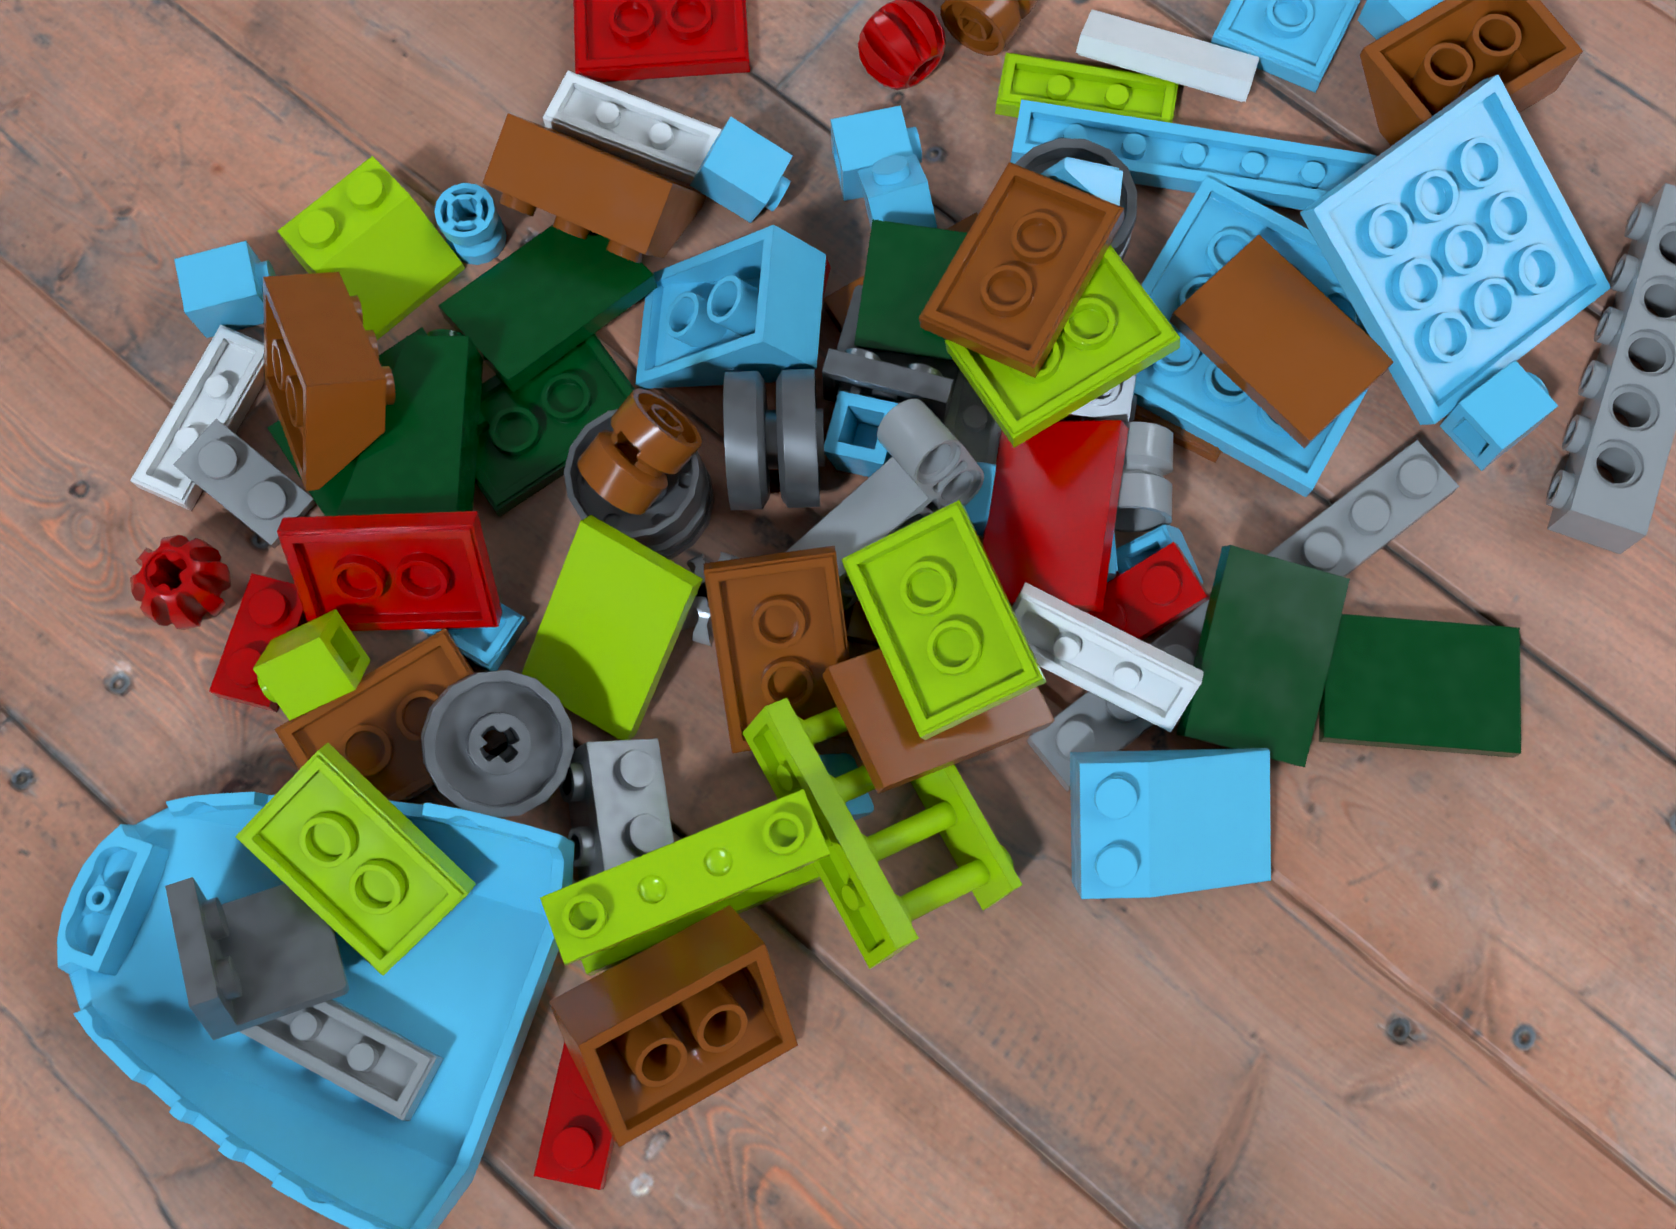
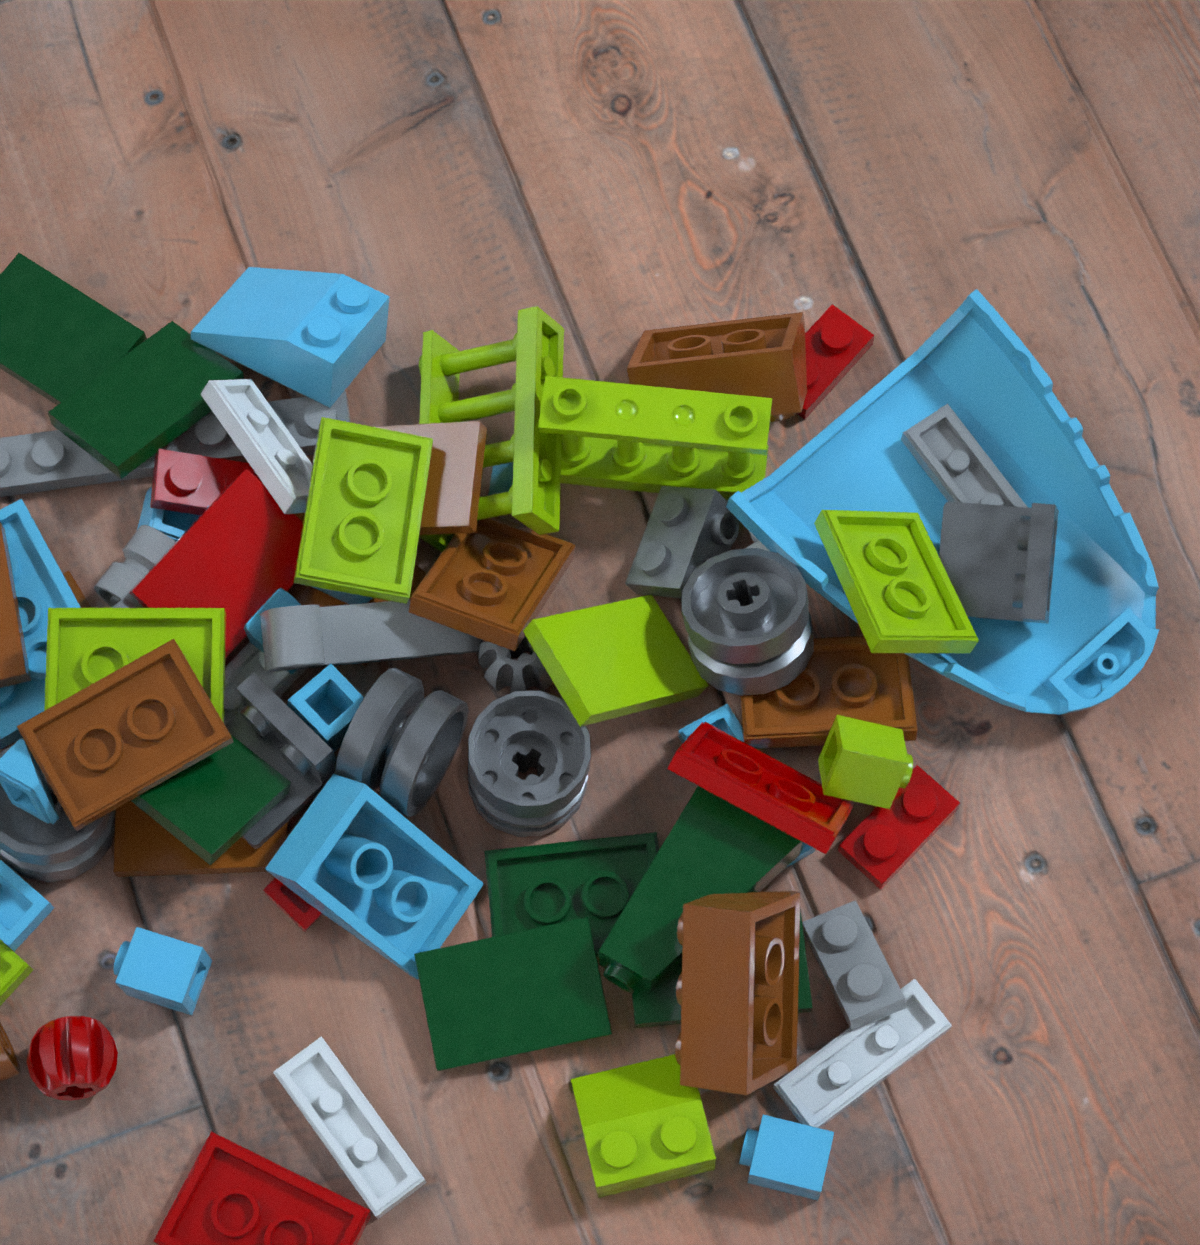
camera: 150 degrees left, 5 degrees down
(180, 582) = (956, 888): red piece -> none
(471, 238) = (547, 1110): medium azure wheel -> none
(589, 190) = (417, 1059): dark orange slope -> none
(632, 460) = (514, 743): dark orange wheel -> none
(743, 171) = (284, 1011): medium azure brick -> none
(897, 192) = (176, 895): medium azure brick -> none

